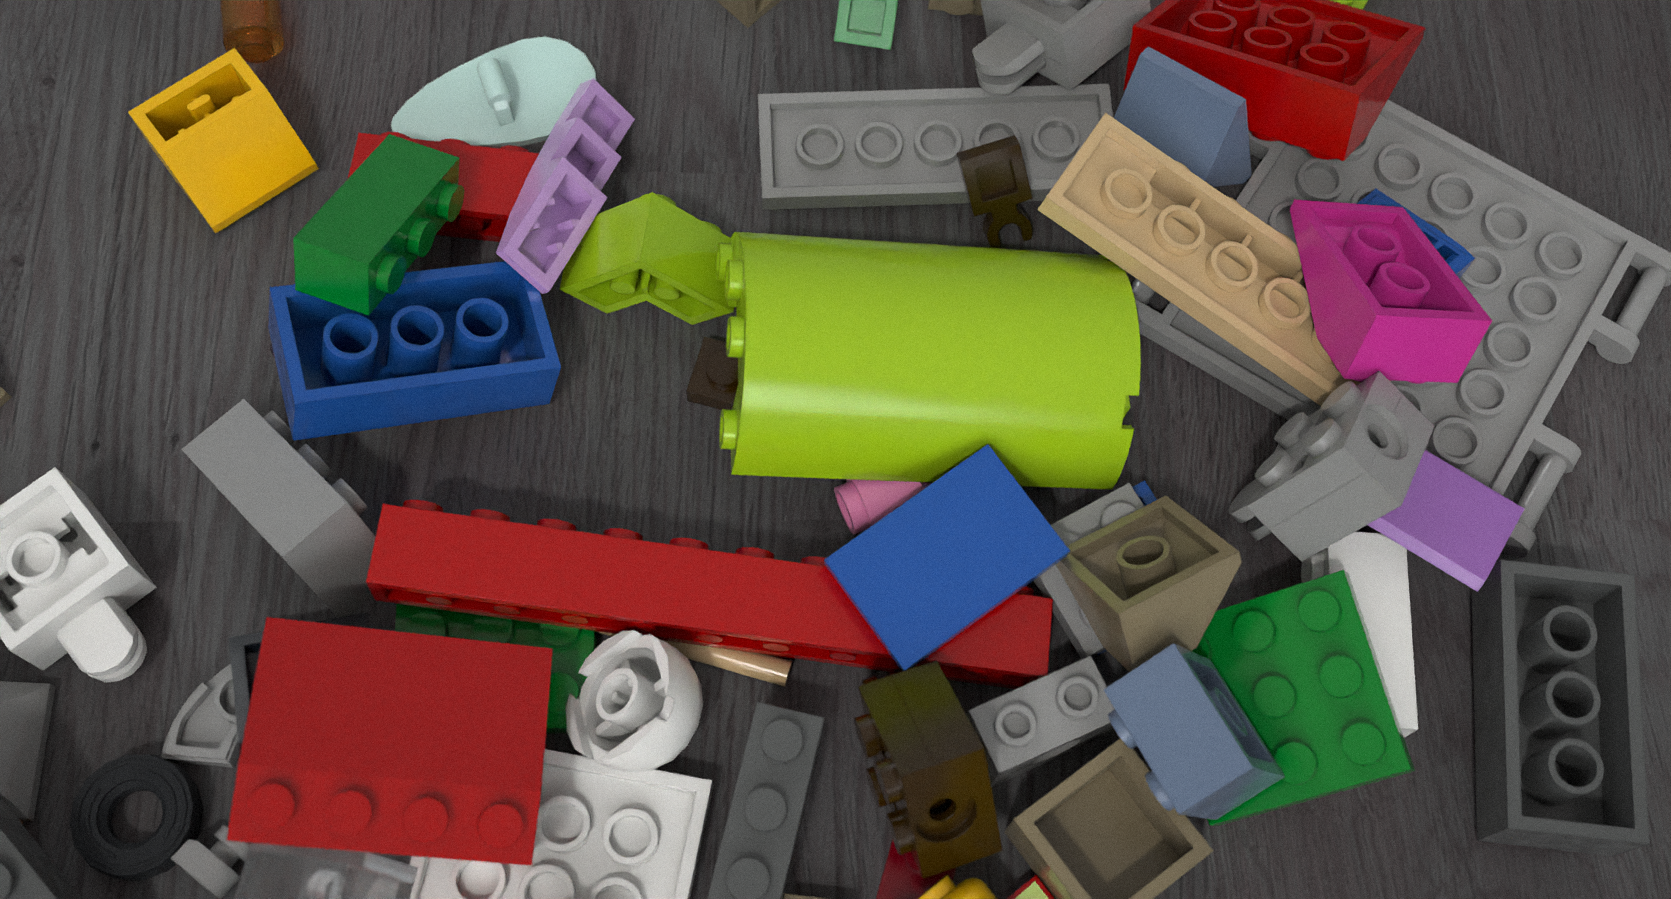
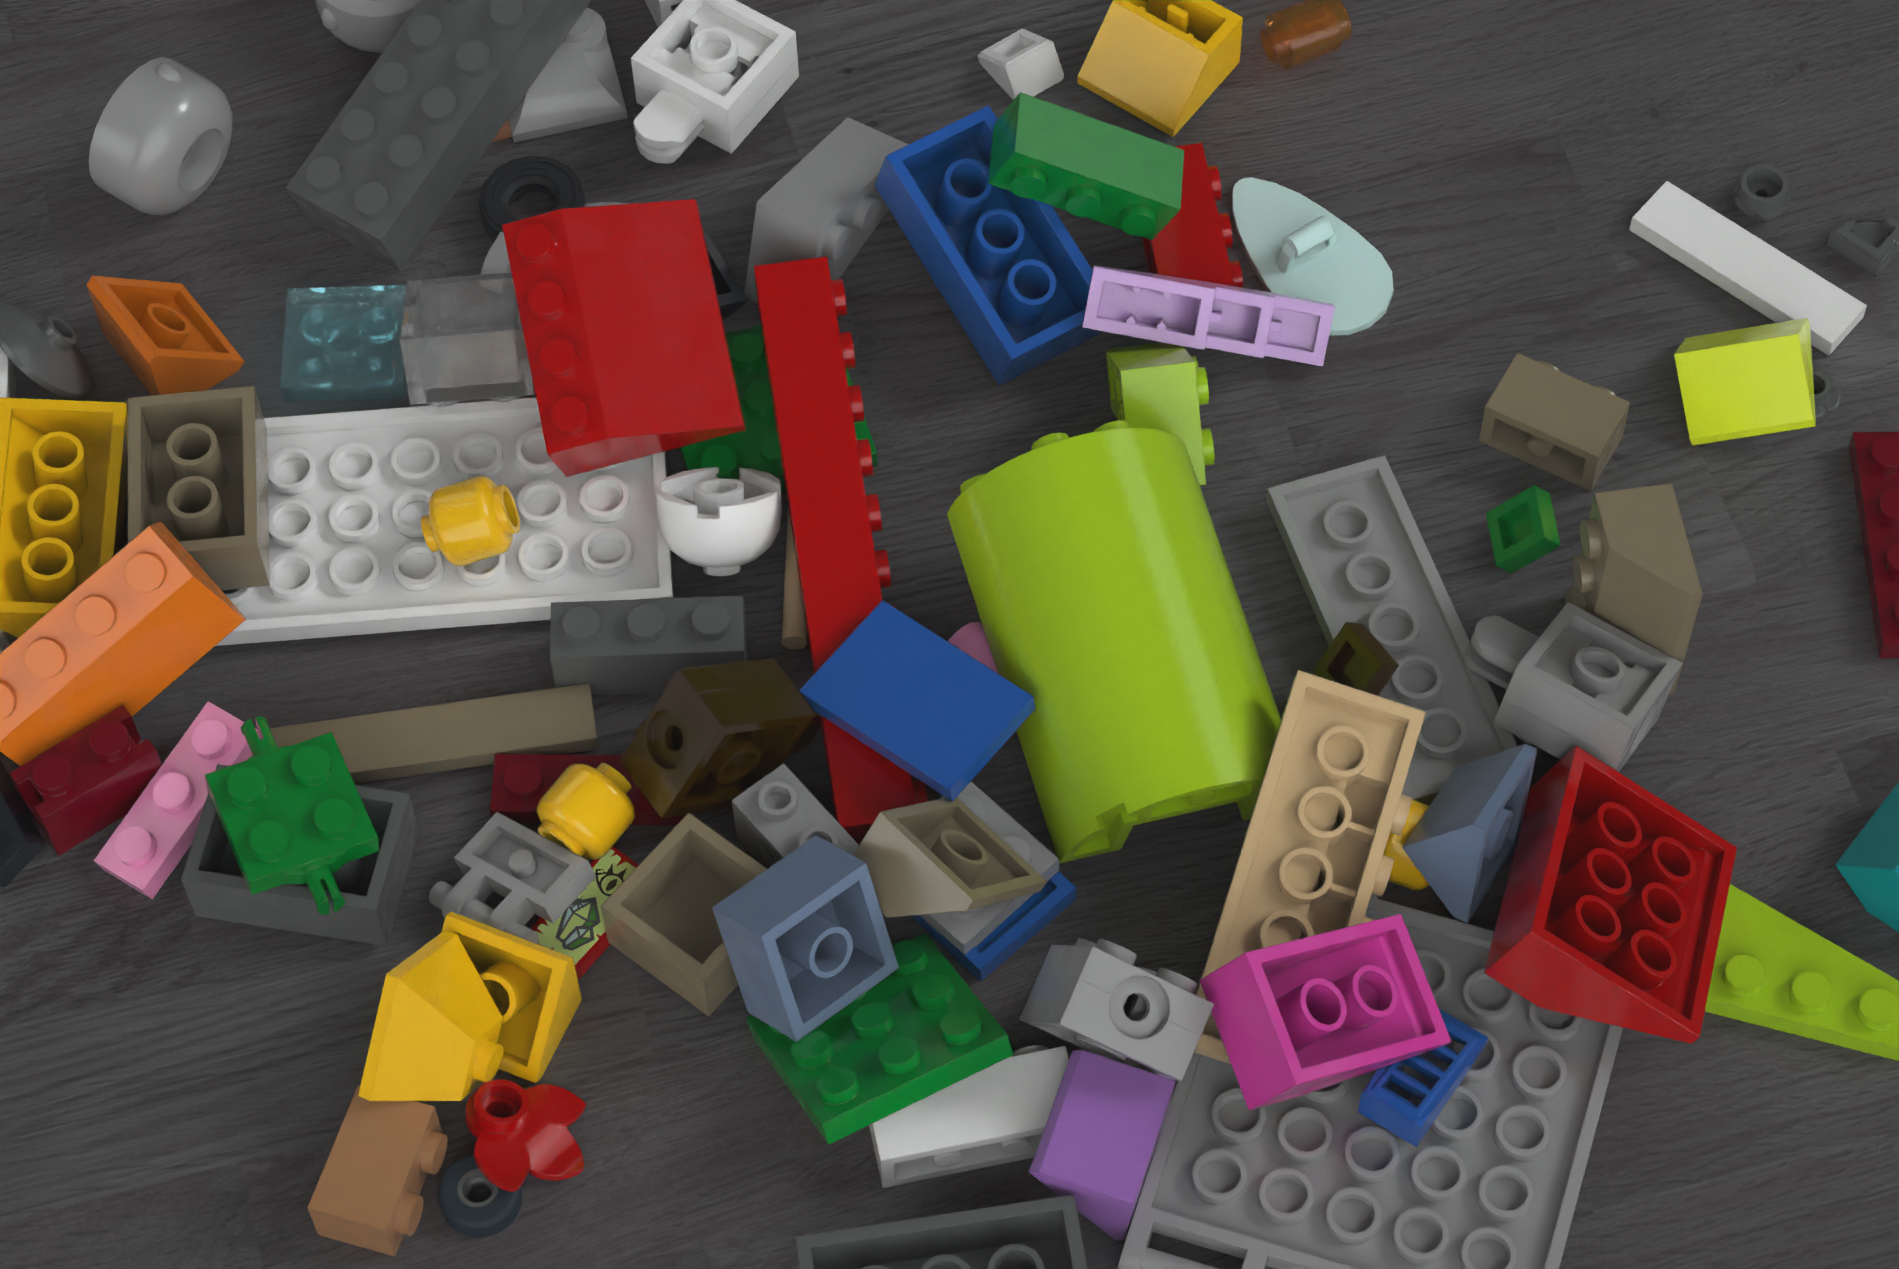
camera: 80 degrees right, 10 degrees down
(167, 277) = (1023, 63): none -> white slope

